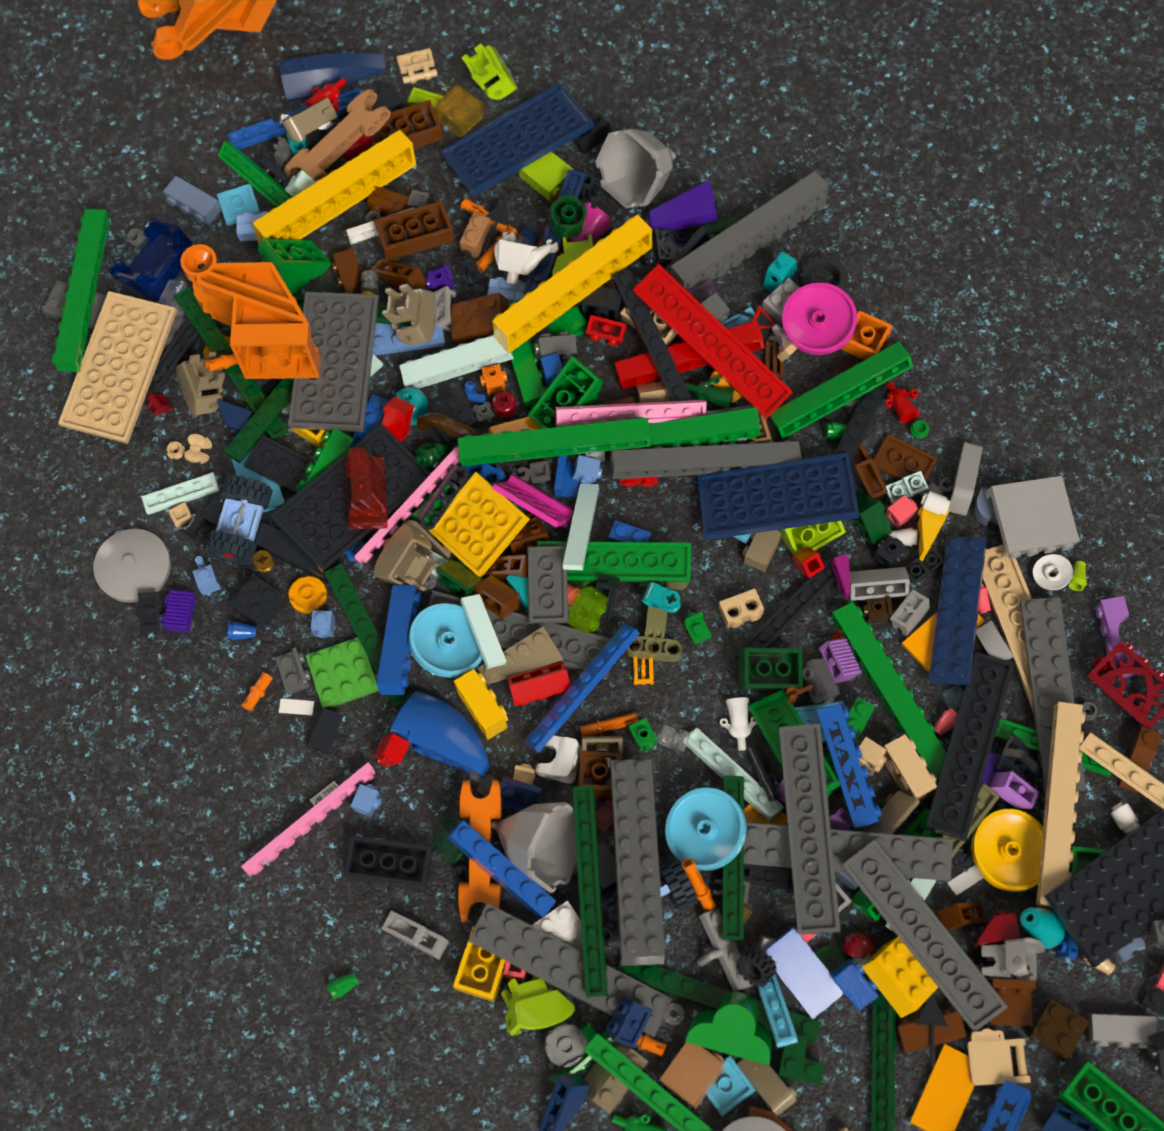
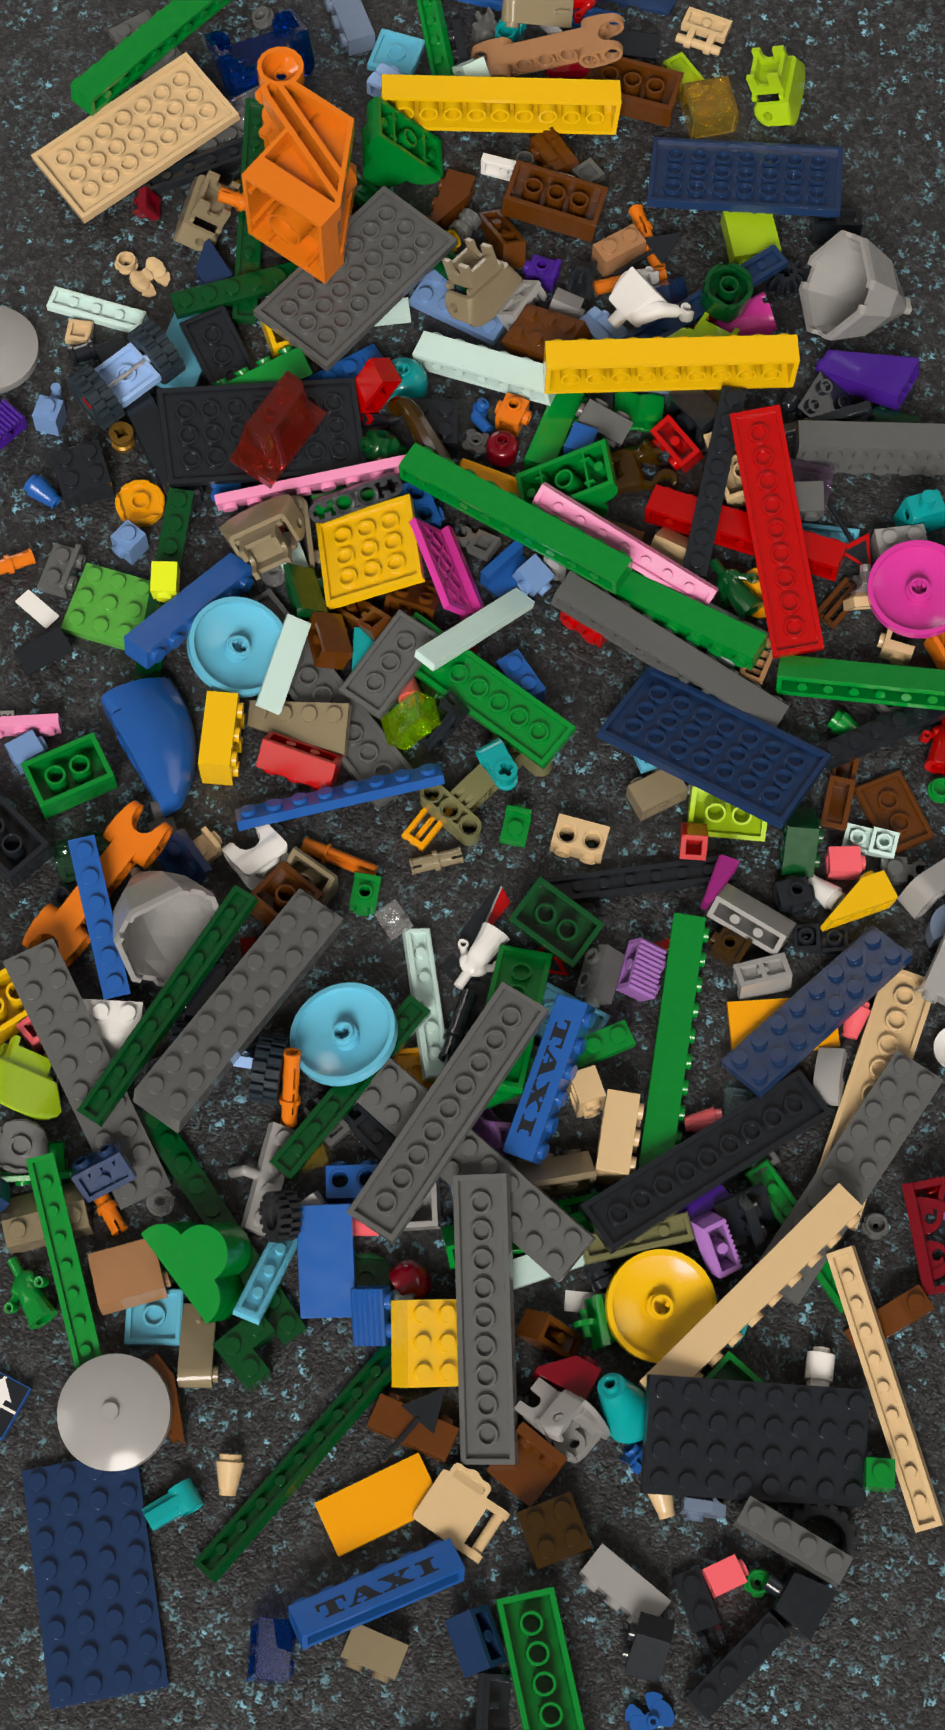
camera: 30 degrees right, 0 degrees up
(370, 632) = (164, 580): none -> neon yellow brick
(391, 750) = (89, 718): red brick -> none
(405, 795) = (69, 775): none -> green brick
(414, 441) = (378, 421): none -> black piece
(472, 289) = (567, 304): none -> light grey brick
(587, 354) = (630, 476): none -> dark brown animal
(667, 683) = (436, 860): none -> dark tan pin
(722, 693) = (488, 913): none -> black sticker
(782, 918) = (353, 1174): none -> blue brick
(794, 692) = (558, 964): dark orange hand -> none
(829, 365) = (894, 651): none -> tan bracket
(935, 503) = (884, 877): white brick -> none
(982, 888) = (594, 1323): none -> green hips

